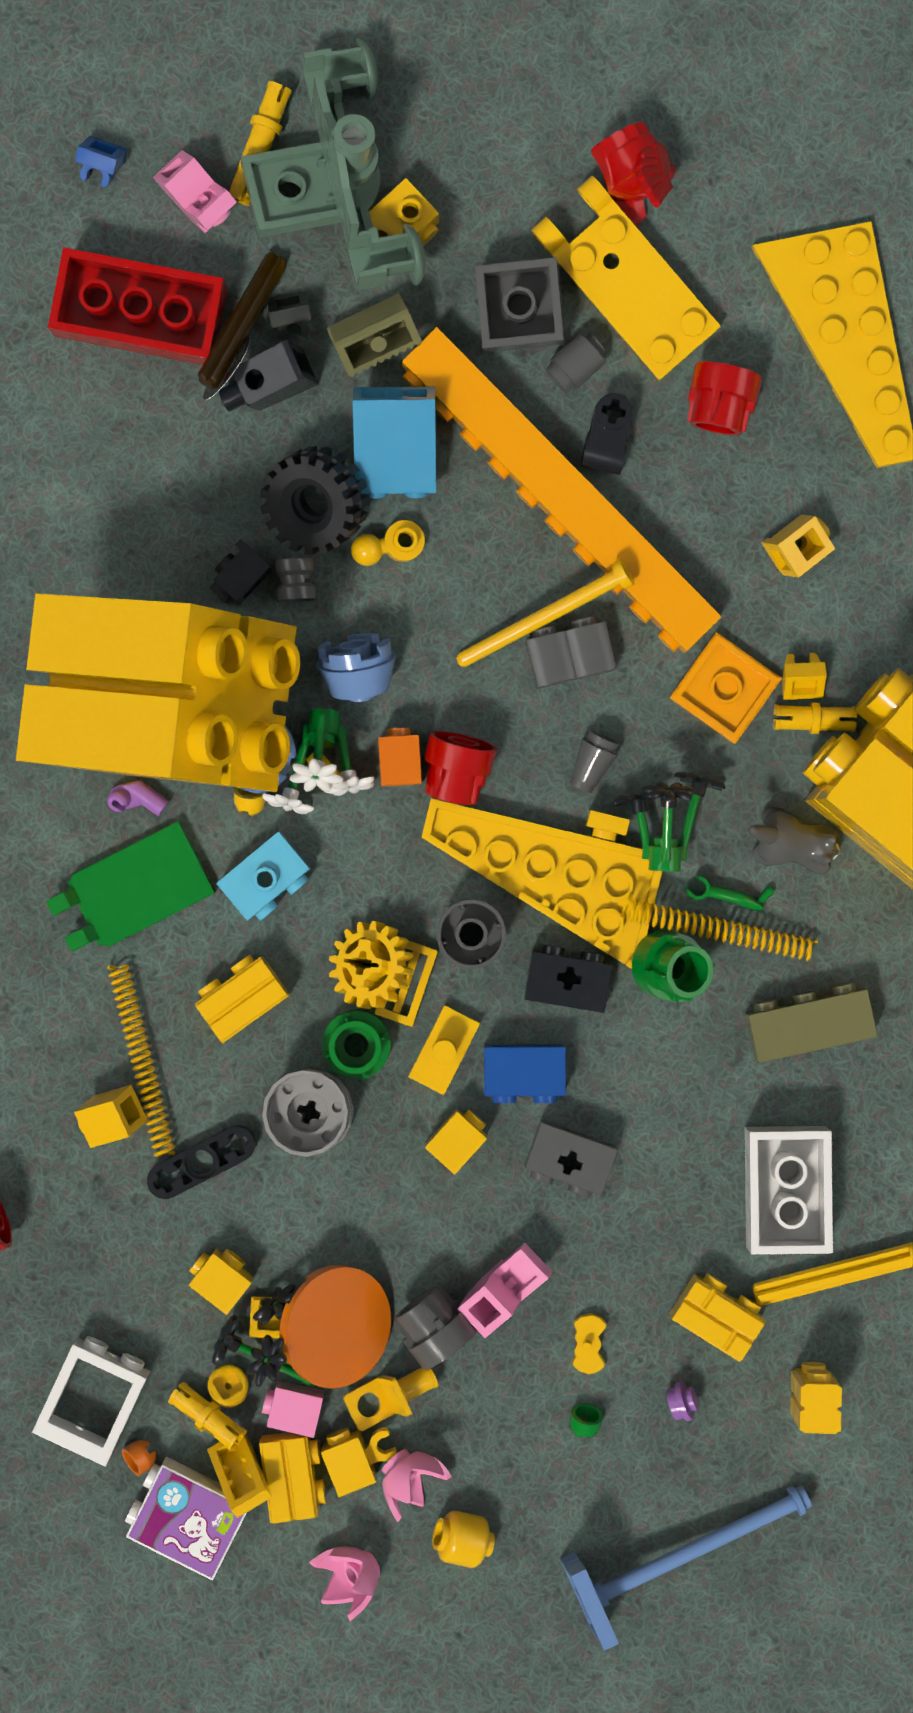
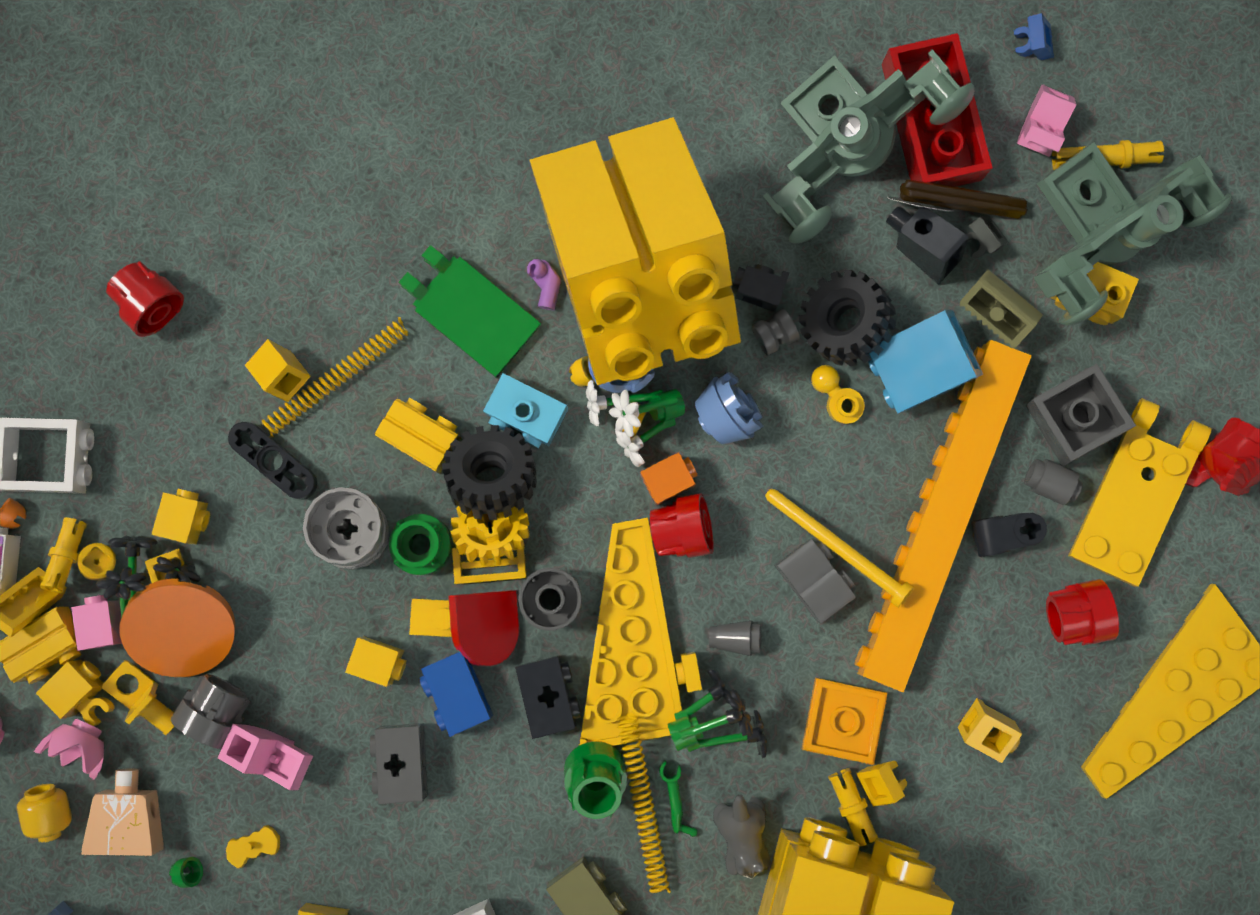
camera: 70 degrees right, 5 degrees down
(124, 405) = (857, 134): none -> sand green piece
(289, 936) = (485, 451): none -> black tyre
(469, 1012) = (484, 626): none -> red tile
(505, 1460) = (124, 819): none -> light nougat torso

